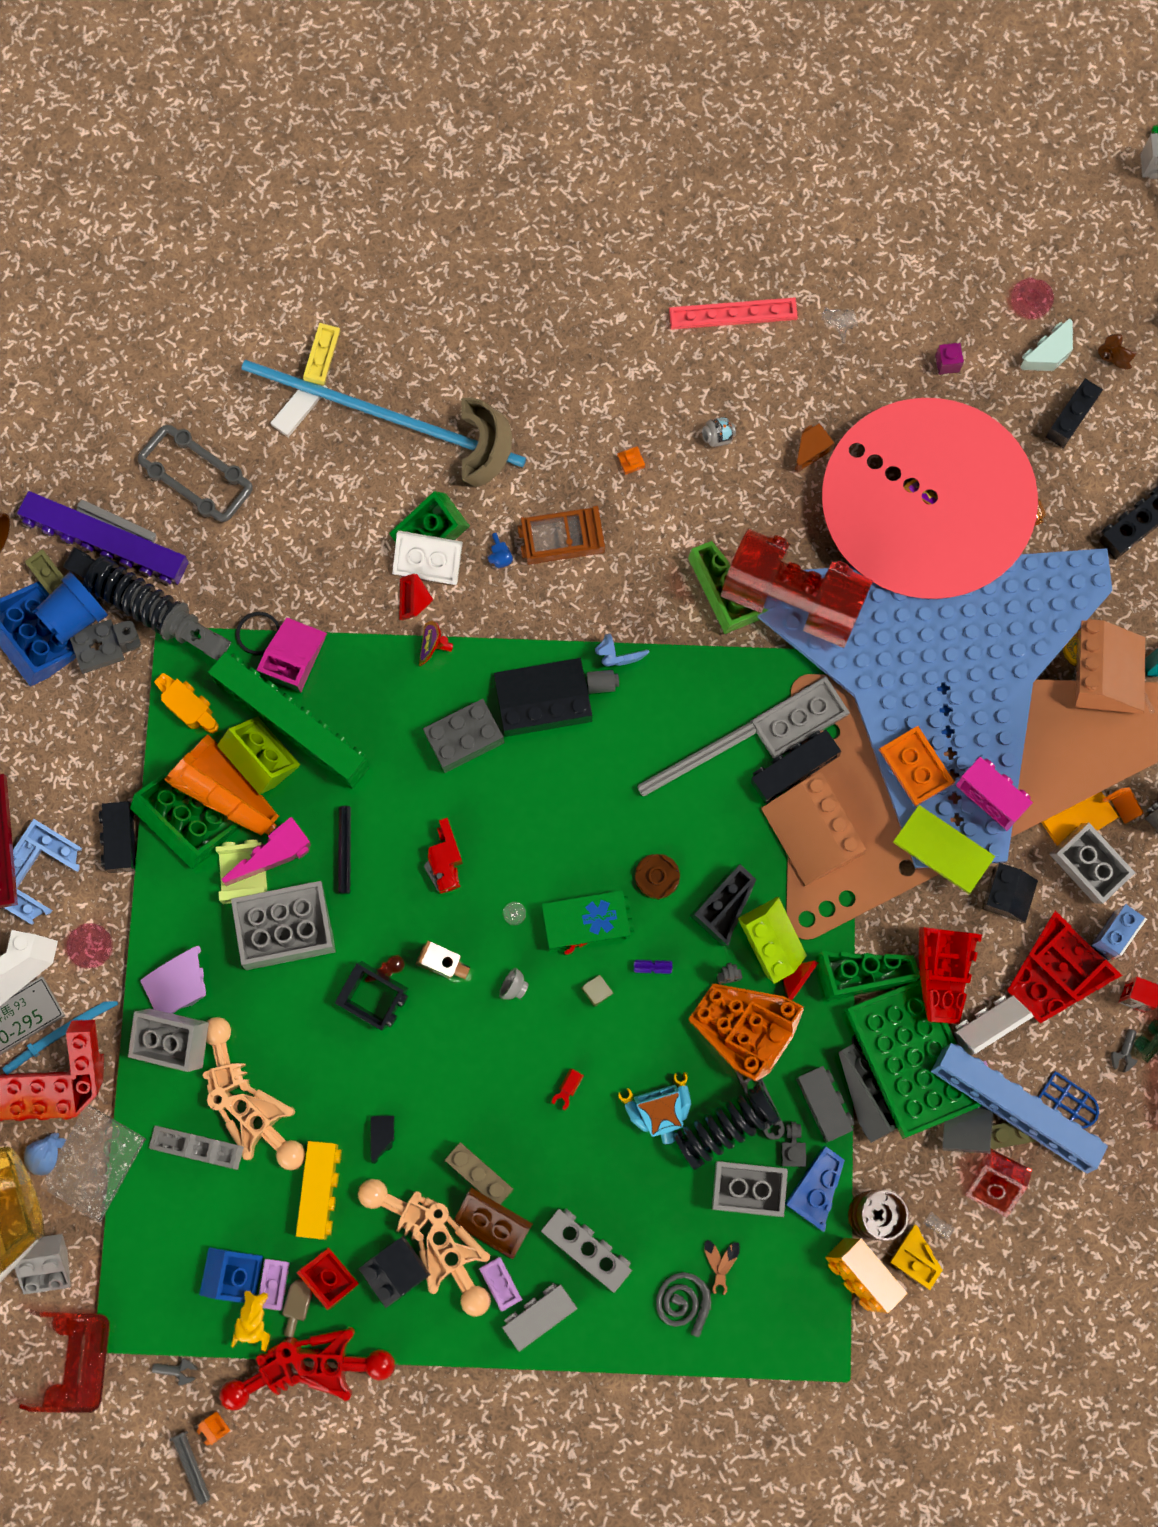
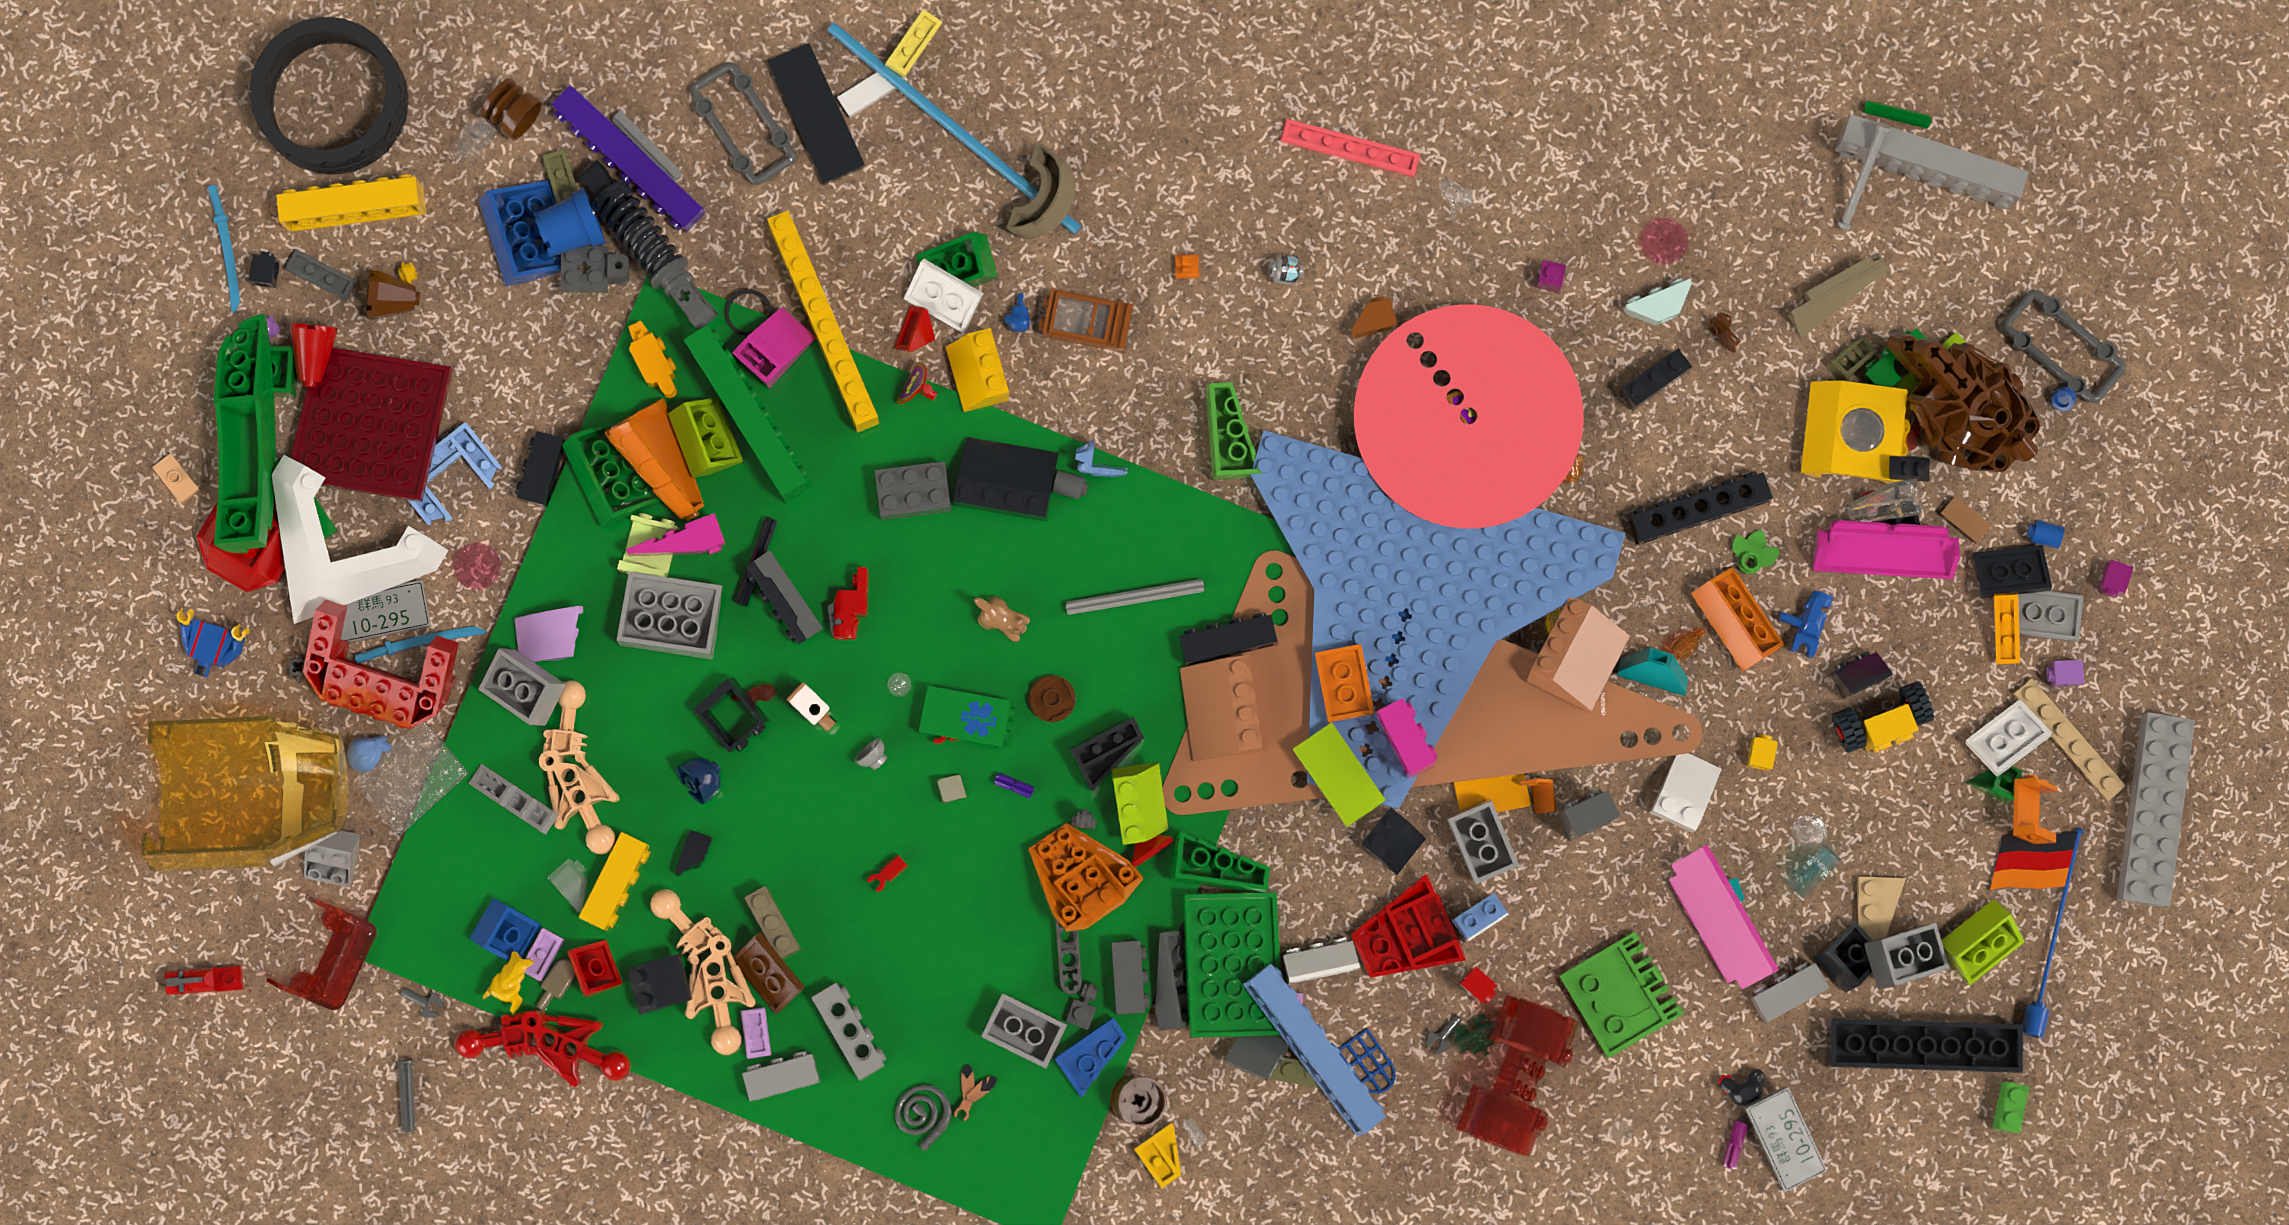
camera: 20 degrees right, 5 degrees up
(213, 1428) = (440, 1067): orange tile -> none
(257, 443) = (816, 114): none -> black tile
(277, 1206) = (571, 882): none -> clear slope
(328, 617) = (823, 321): none -> yellow brick
(364, 1064) = (700, 777): none -> dark blue cylinder
(381, 871) = (784, 597): none -> piece
(482, 611) = (977, 370): none -> yellow slope
(582, 819) = (997, 615): none -> medium nougat animal
(660, 1110) = (968, 925): torso -> none
(693, 1149) = (984, 979): black piece -> none
(761, 572) = (1266, 438): clear red cylinder -> none
(800, 717) = (1253, 592): light grey tile -> none
(865, 1275) = (1102, 1151): brick -> none
(944, 971) = (1296, 893): red wedge -> none
(999, 1183) = (1268, 1113): clear red slope -> none

